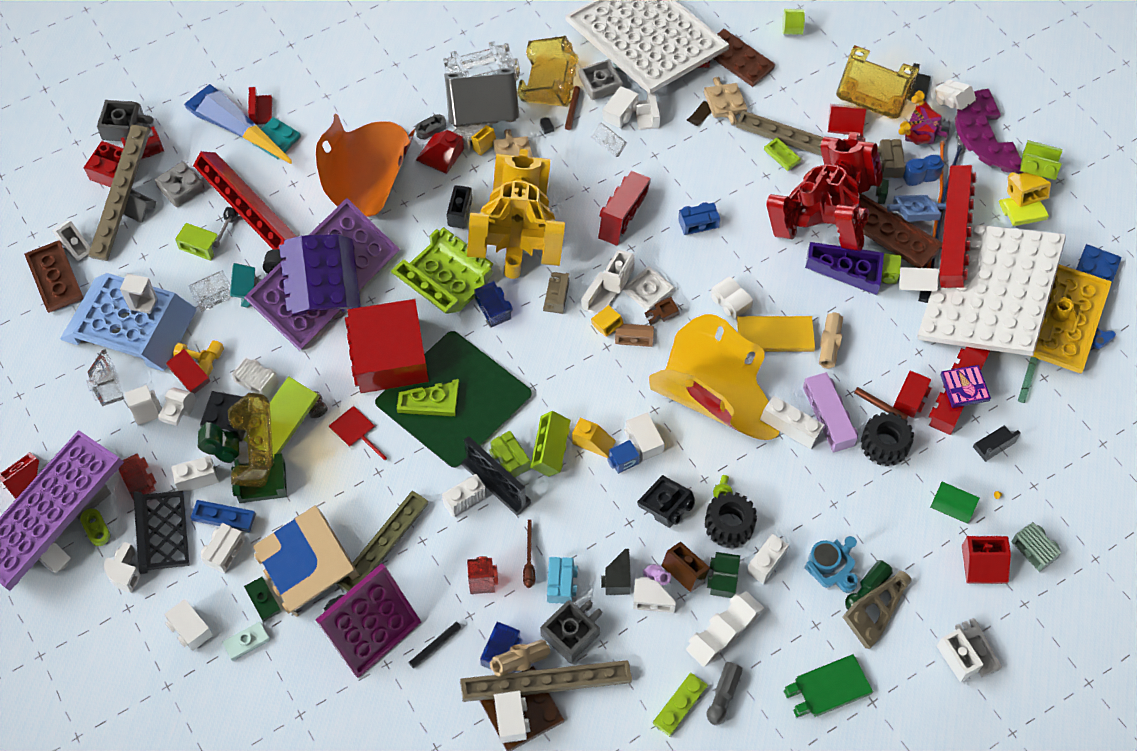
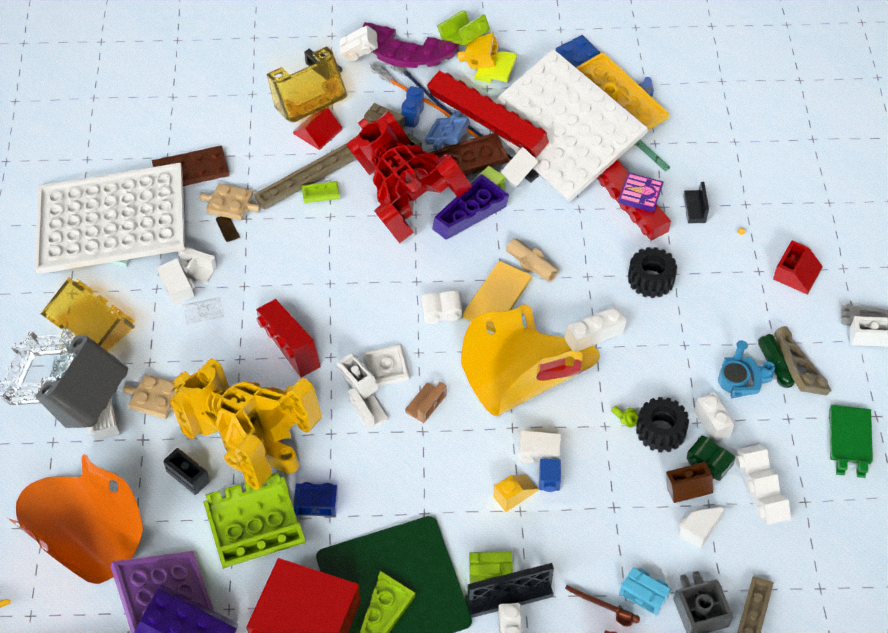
camera: 60 degrees left, 5 degrees down
(430, 126) = (60, 451): dark grey beam -> none
(442, 151) = (105, 451): red slope -> none
(483, 140) = (121, 403): yellow piece -> none
(546, 125) = (143, 353): black piece -> none
(550, 443) = (502, 526): lime brick -> none
(556, 293) = (340, 439): dark tan hinge -> none
(572, 108) = (141, 322): copper bar -> none
(600, 79) = (130, 281): light grey brick -> none
(607, 321) = (399, 415): yellow piece -> none
(617, 575) = (665, 540): pearl dark grey slope -> none
(658, 574) = (678, 510): lavender bar -> none
(665, 310) = (419, 364): reddish brown plate -> none
(667, 501) = (615, 464): black plate -> none
(680, 704) = (811, 558): lime plate -> none
(699, 218) = (342, 287): blue brick -> none
(724, 693) = (818, 516): dark grey piece -> none
(793, 21) = (190, 107): lime piece -> none
(830, 412) = (600, 297): lavender brick -> none
(879, 403) = (611, 261): copper bar -> none
(912, 393) = (619, 233): red brick -> none
(924, 123) = (368, 79): torso -> none
(954, 502) = (735, 260): green brick -> none
(1036, 546) = (803, 230): sand green brick -> none

